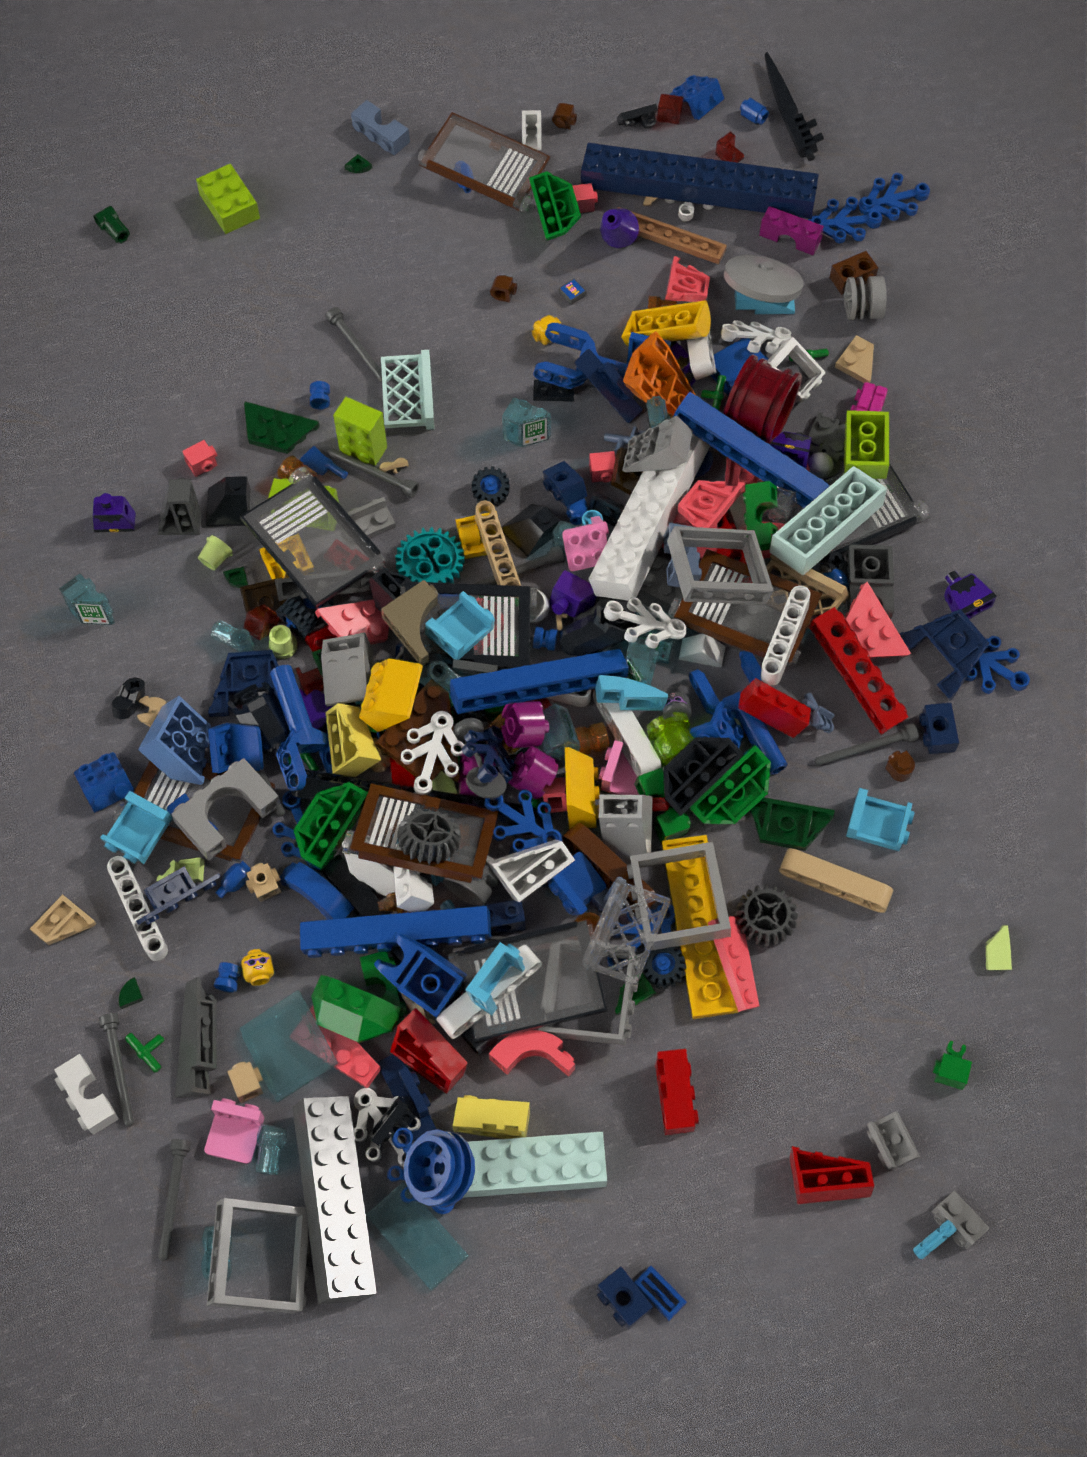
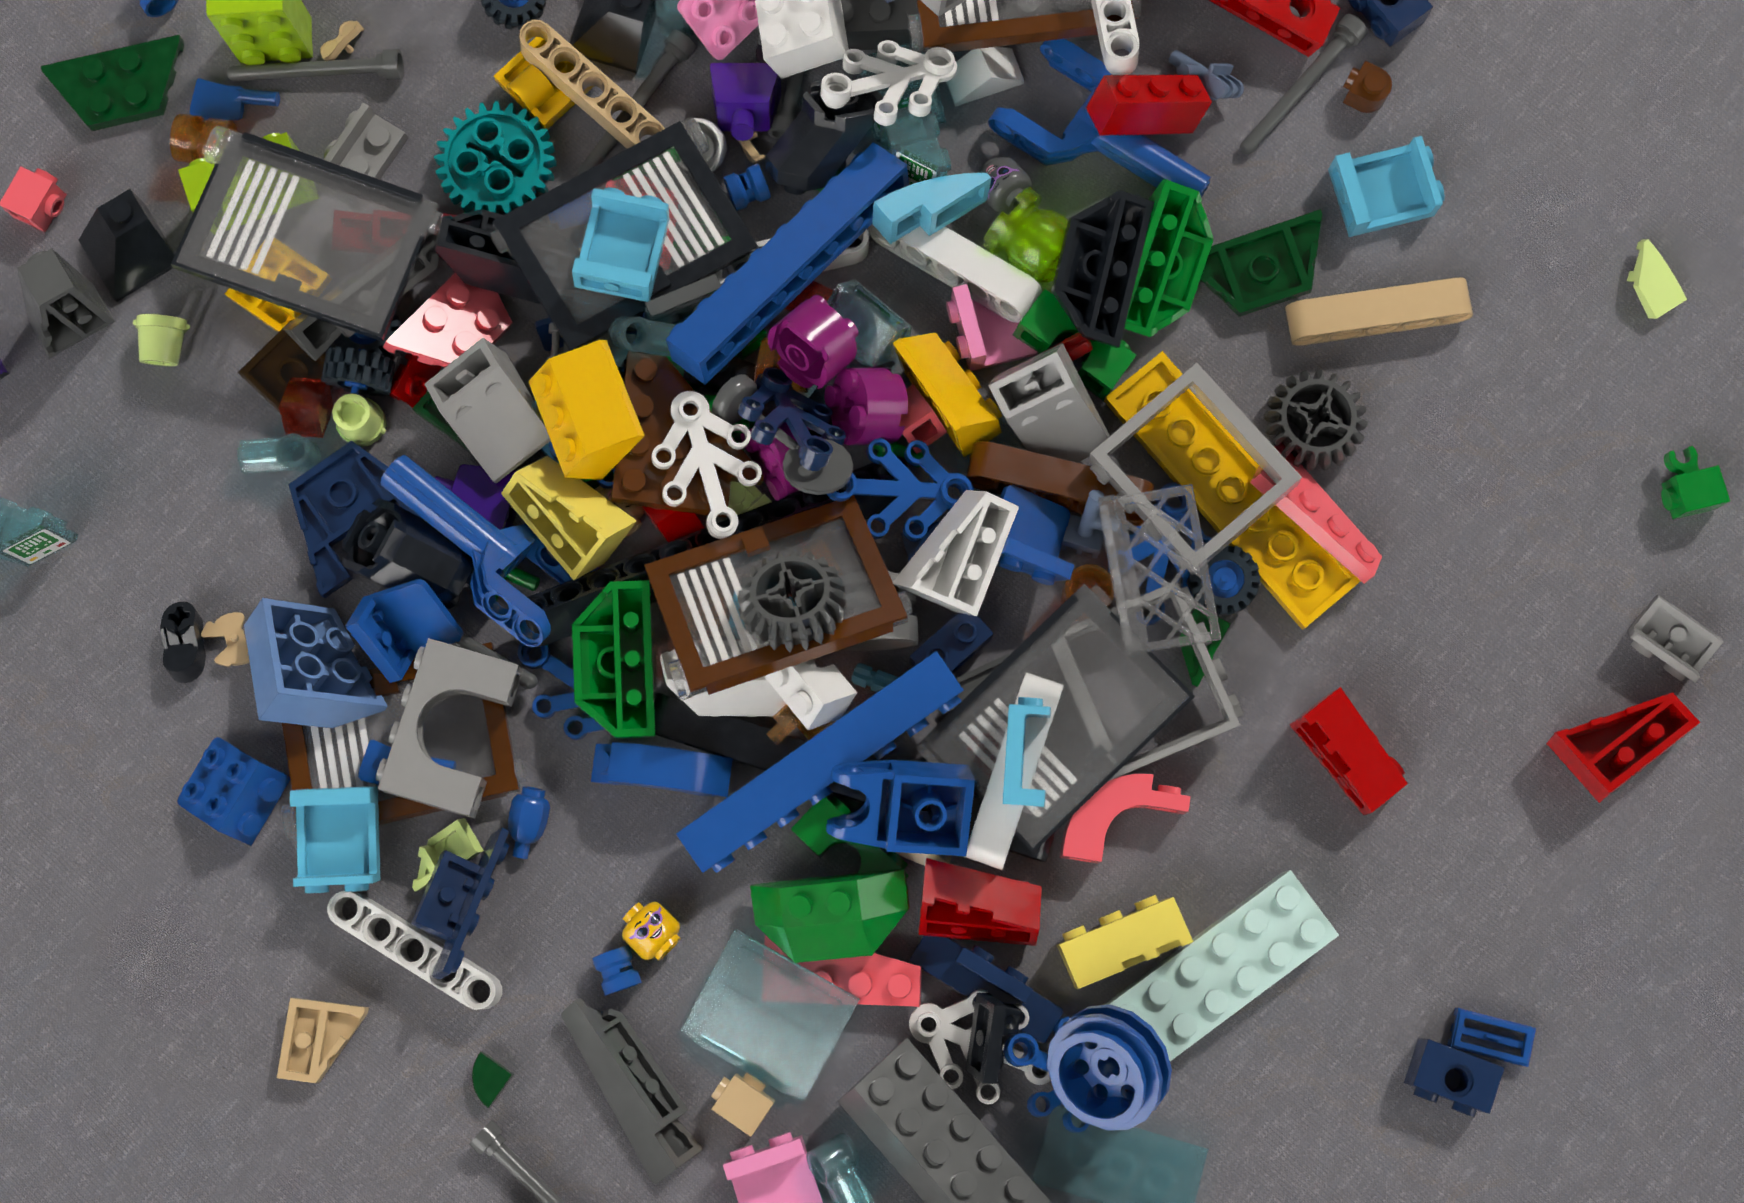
camera: 30 degrees left, 15 degrees up
(143, 1052) = (567, 1148): green piece -> none
(236, 577) = (220, 357): dark green tile -> none
(266, 888) = (590, 800): tan brick -> none
(310, 680) = (441, 454): clear red panel -> none
(407, 615) = (532, 277): dark tan arch -> none
(592, 738) = (915, 299): clear orange wheel -> none
(721, 726) = (1094, 180): blue bracket -> none

